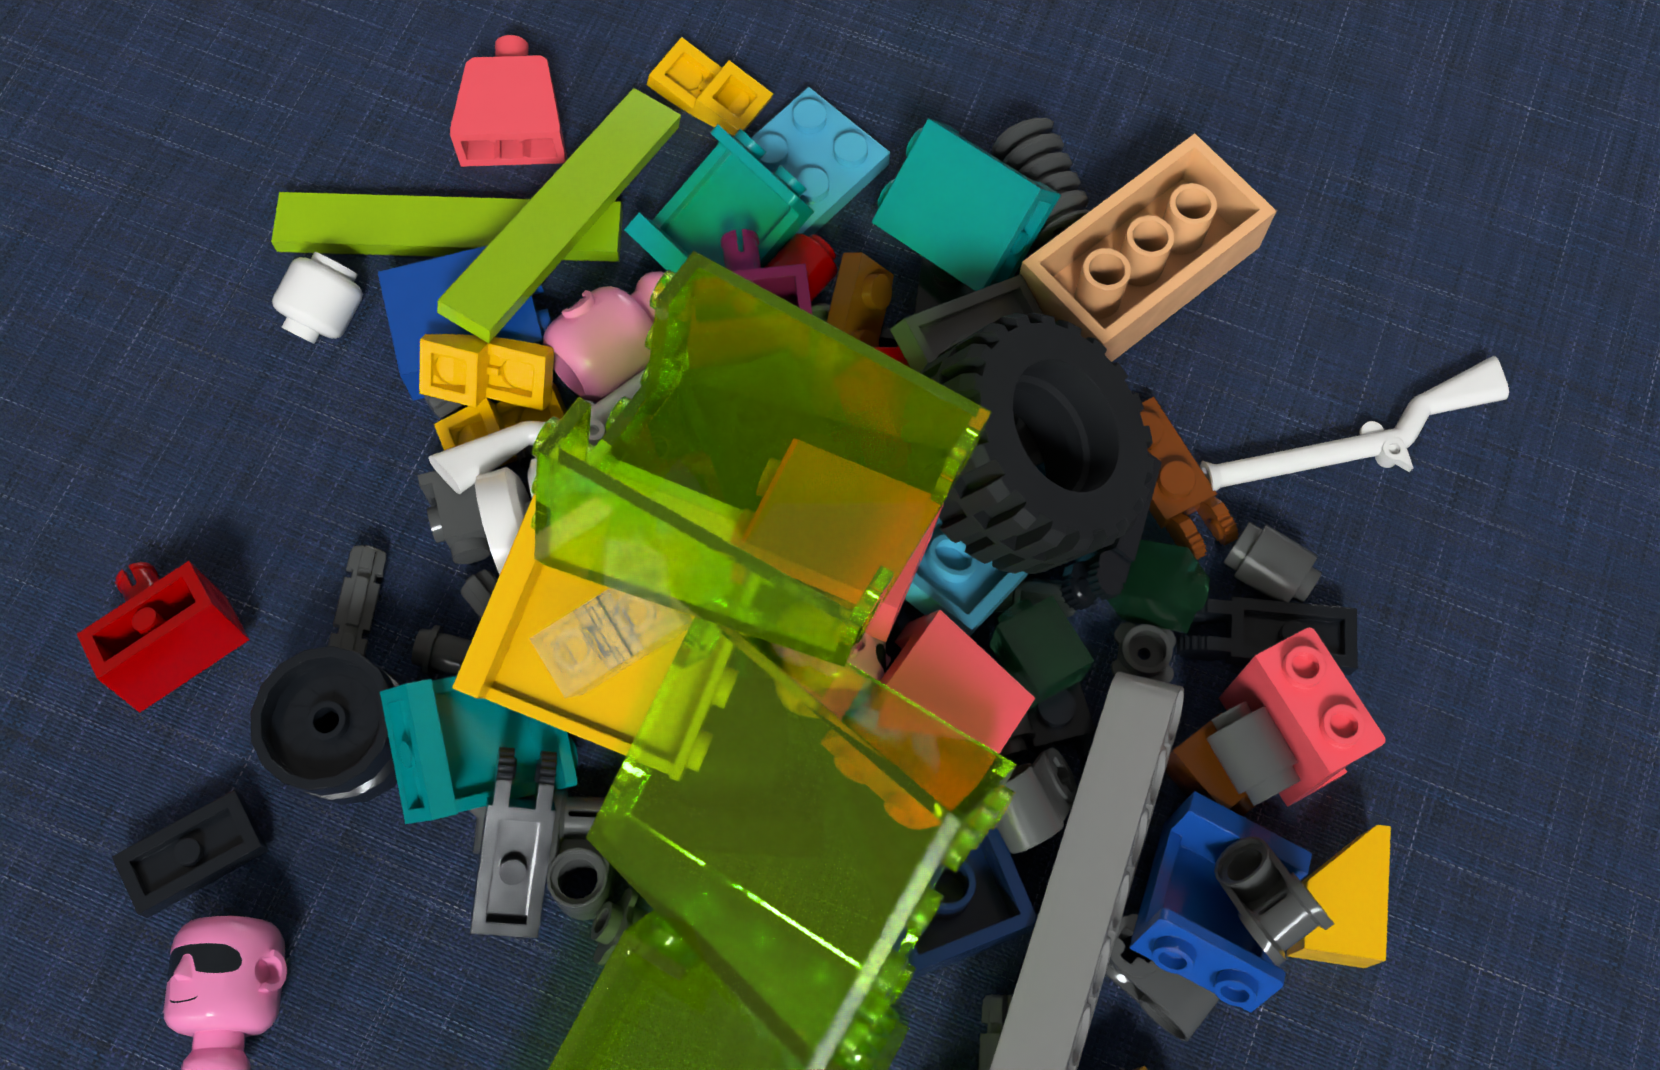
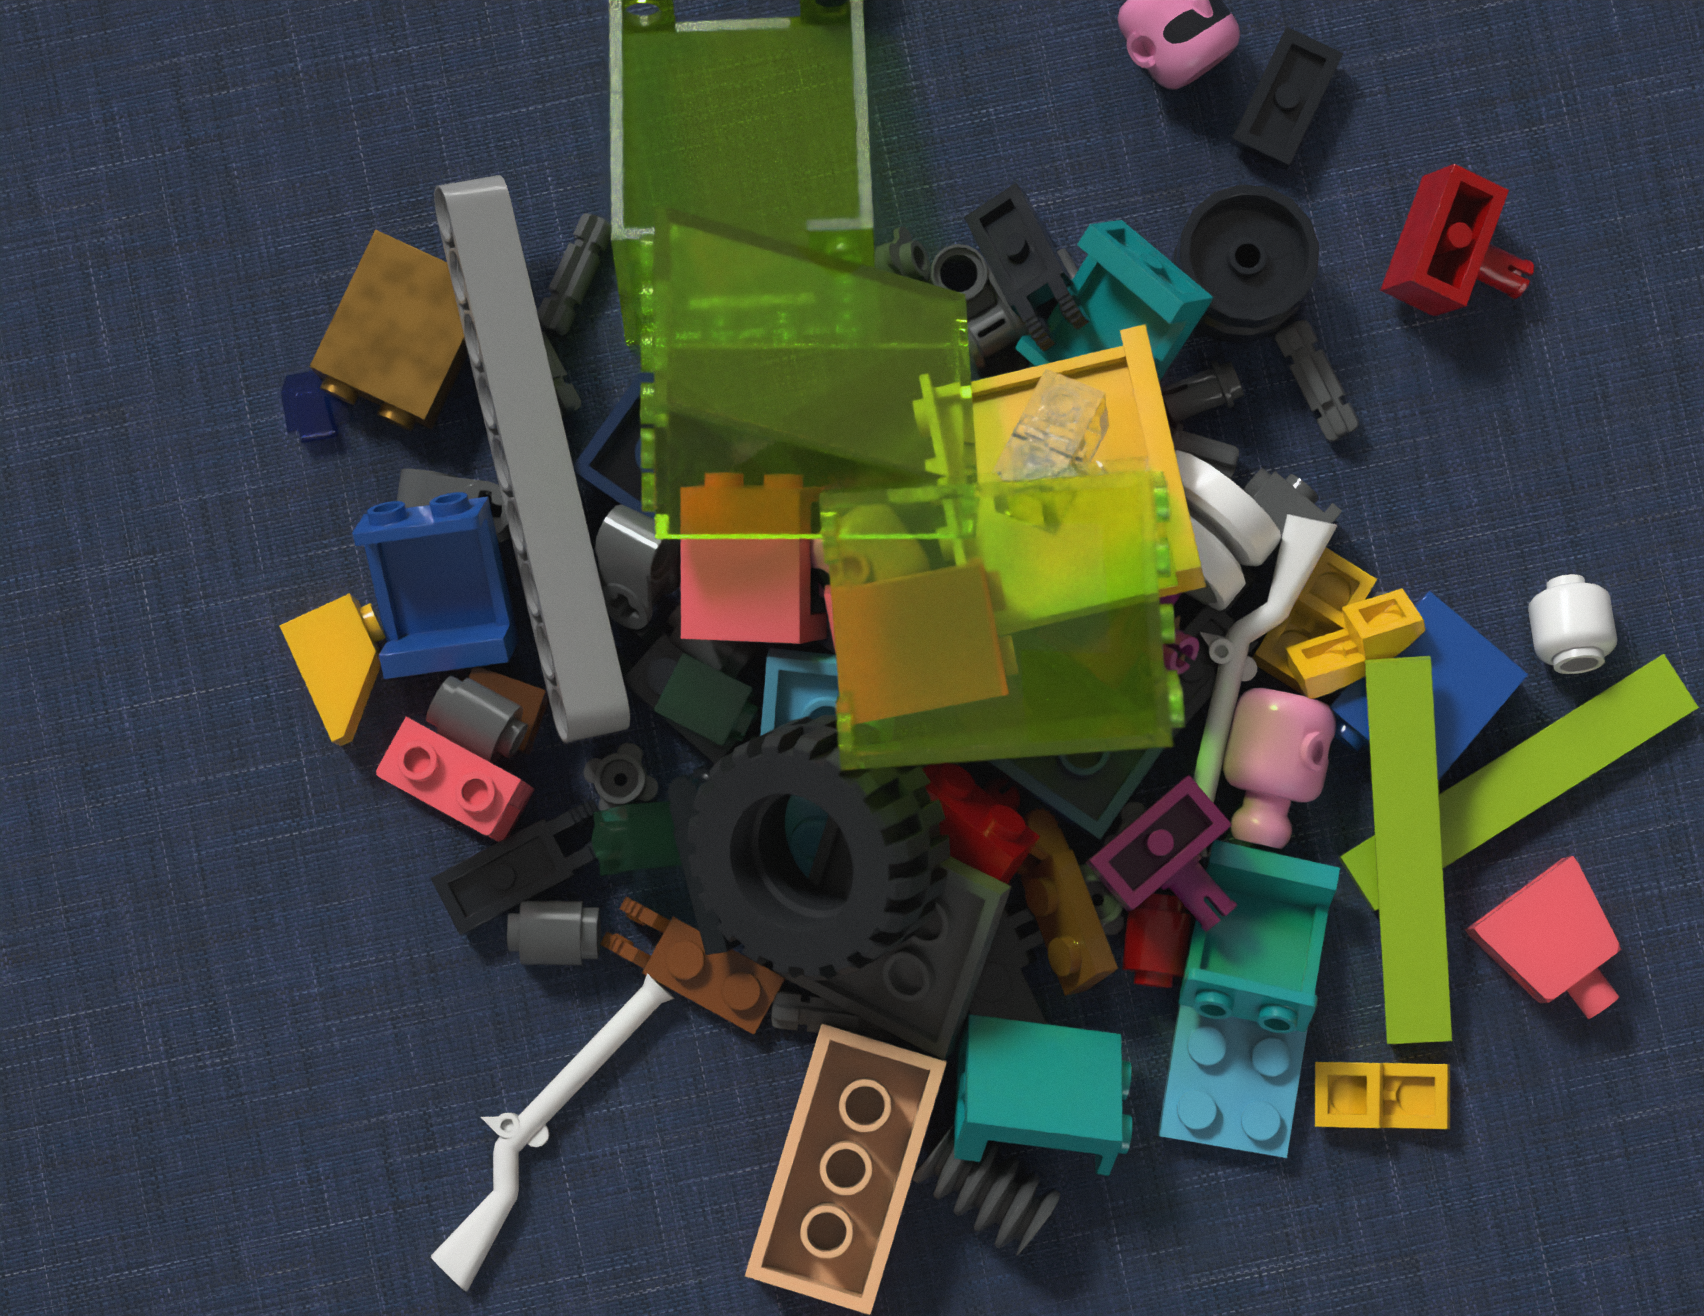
camera: 155 degrees right, 15 degrees up
(1268, 897) = (399, 601): dark grey piece -> none

